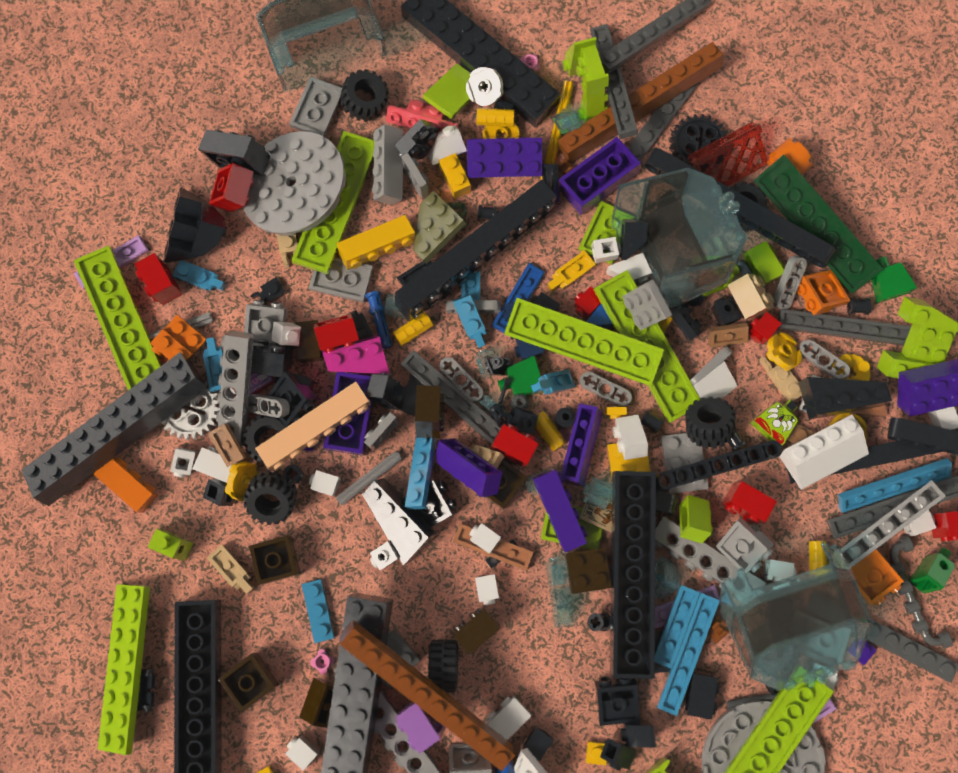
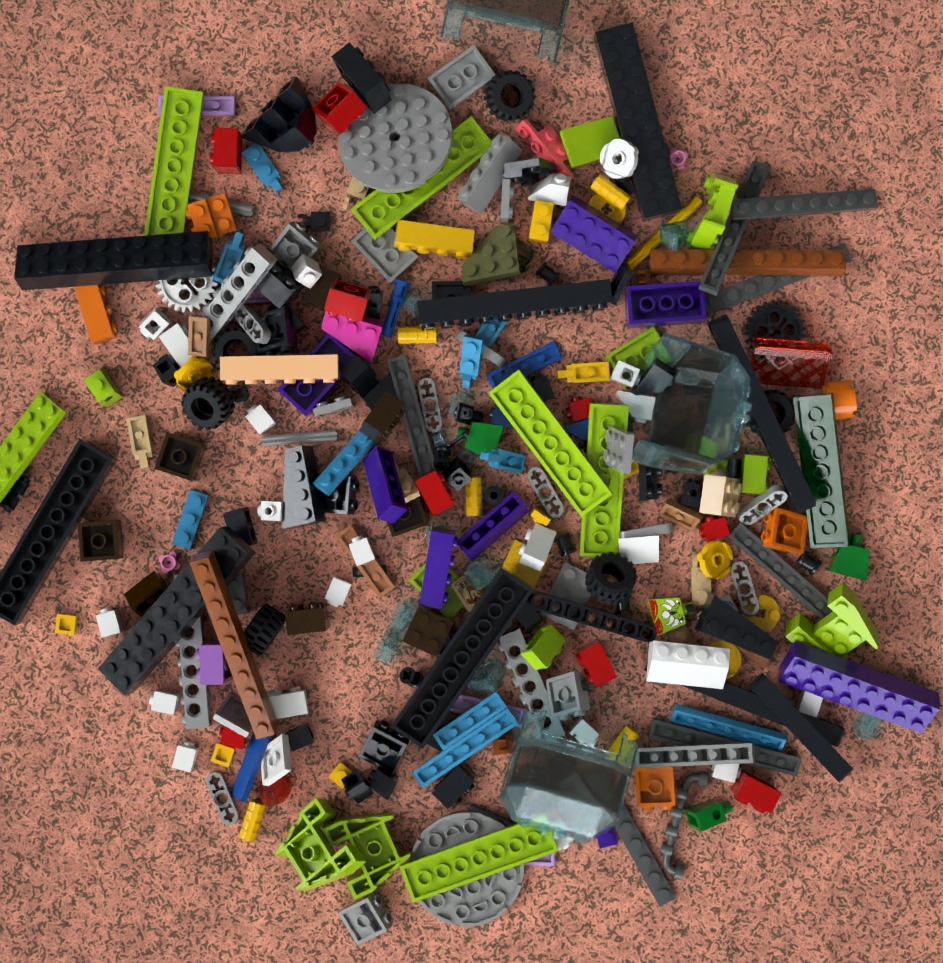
camera: 35 degrees right, 10 degrees up
(364, 583) = (242, 524): none -> black hinge

